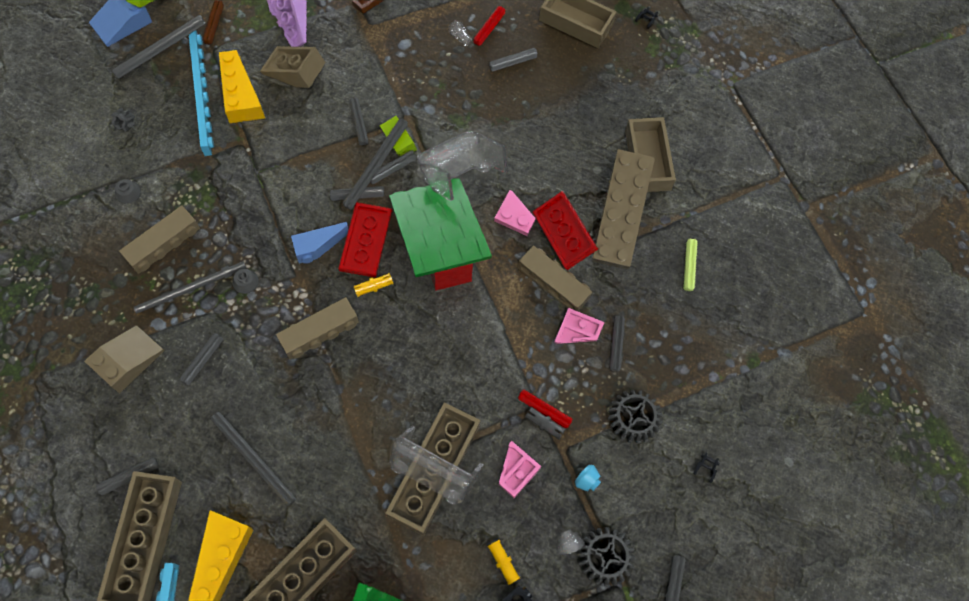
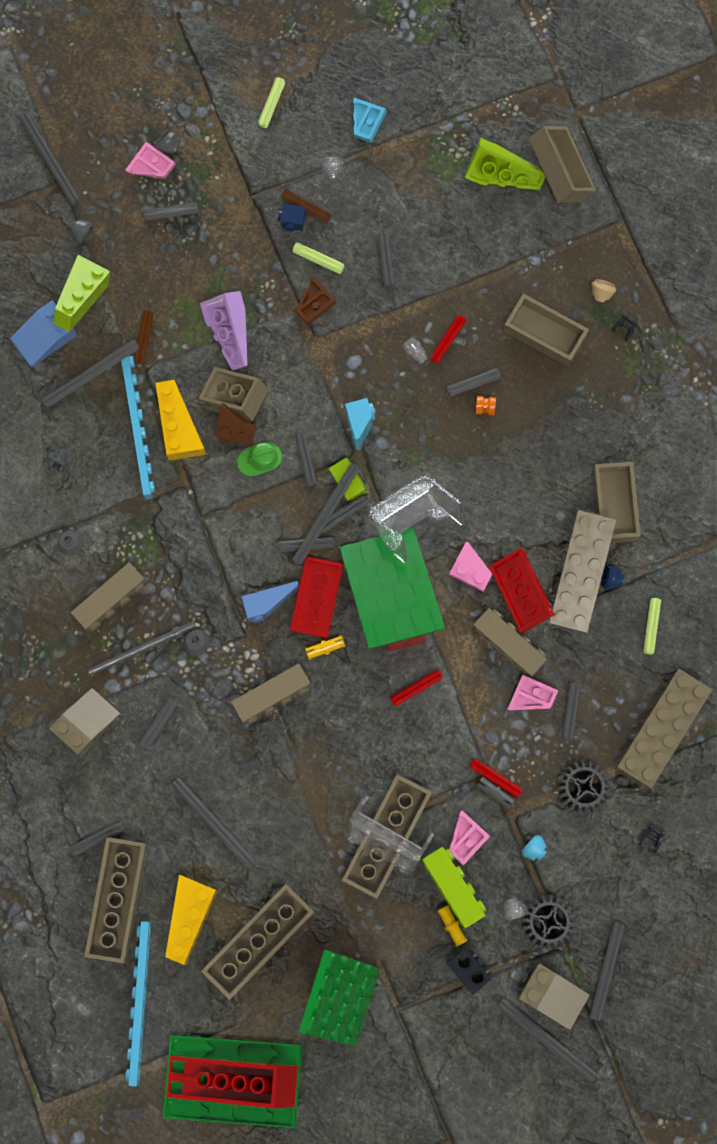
camera: 10 degrees right, 10 degrees up
(291, 92) = (234, 428): none -> reddish brown wing
(315, 120) = (259, 459): none -> bright green piece
(409, 84) = (360, 418): none -> medium azure slope
(463, 322) = (416, 687): none -> red axle
(505, 520) = (453, 888): none -> lime brick
(525, 76) = (485, 405): none -> orange wheel
(650, 220) = (611, 577): none -> dark blue cone
(710, 359) = (663, 729): none -> dark tan brick

